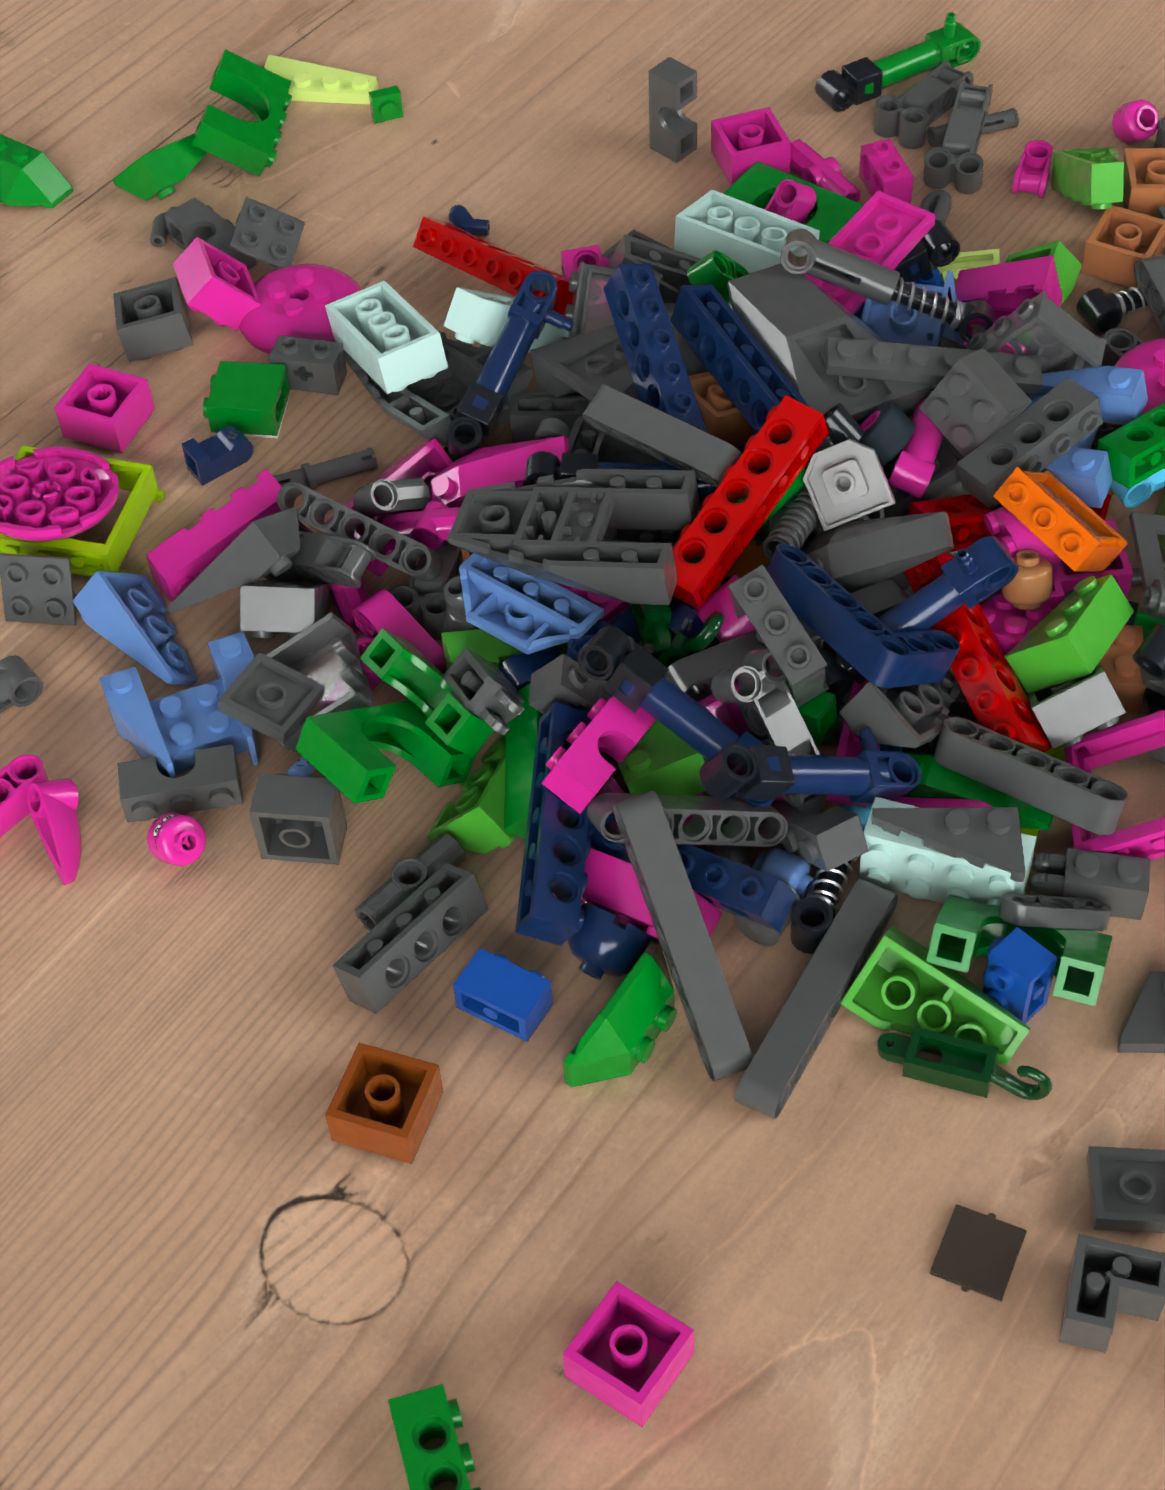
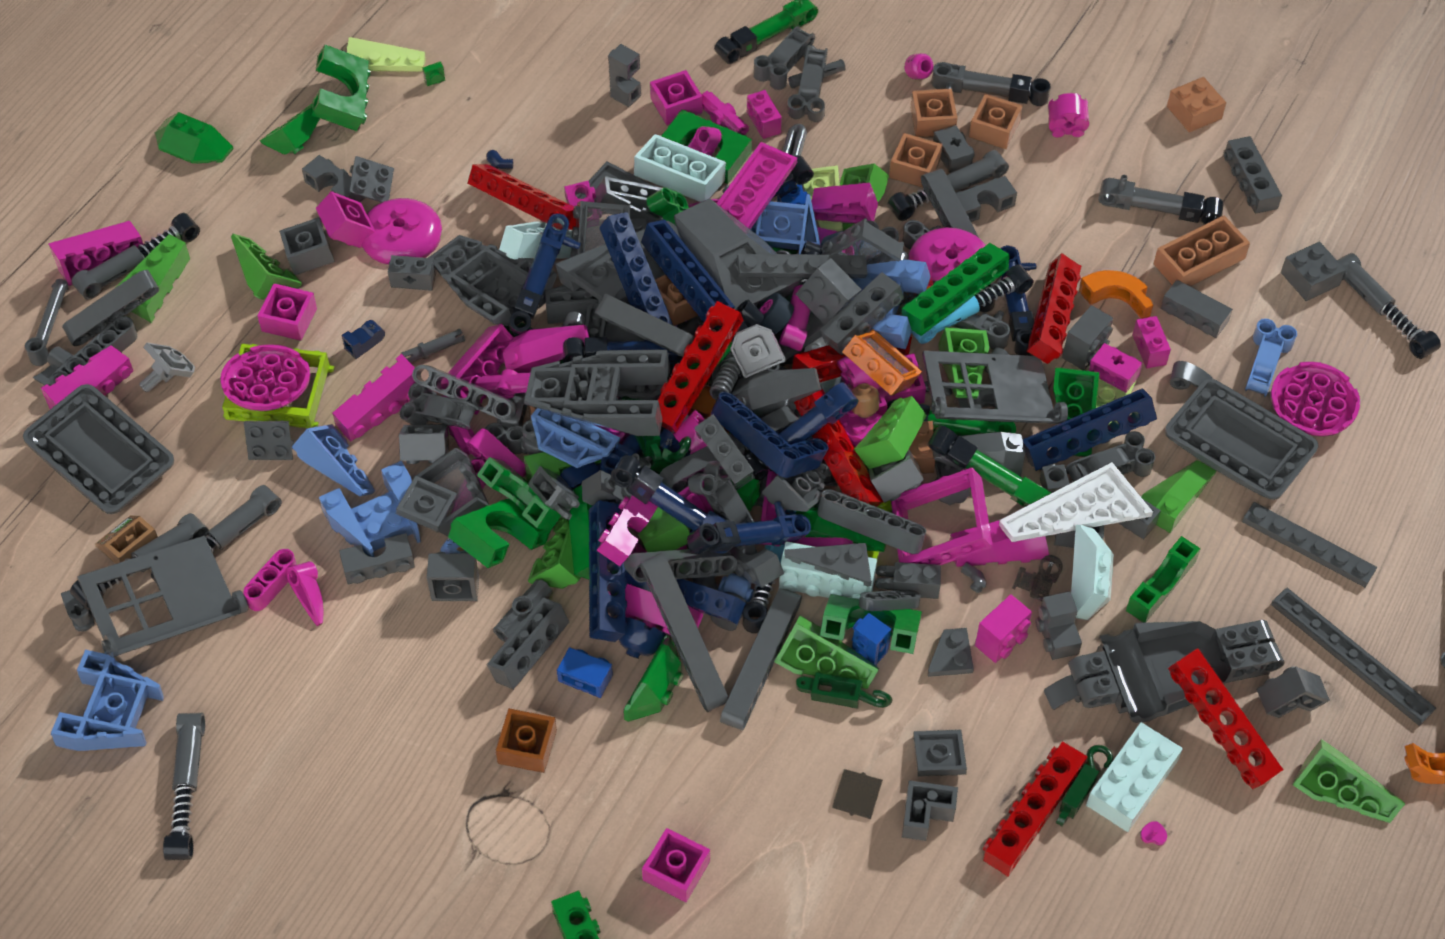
camera: 10 degrees left, 5 degrees up
(75, 345) = (261, 269): none -> bright green wedge
(159, 230) = (297, 175): dark grey arm -> none
(176, 839) = (381, 594): dark pink head -> none
(248, 397) = (376, 299): green piece -> none
(256, 552) = (406, 412): dark grey wedge -> none
(387, 337) = (461, 254): light aqua brick -> none
(392, 497) = (480, 366): dark grey piece -> none
(879, 283) = (767, 210): dark grey piece -> none
(1034, 169) = (856, 104): dark pink piece -> none
(1089, 176) = (891, 112): bright green wedge -> none

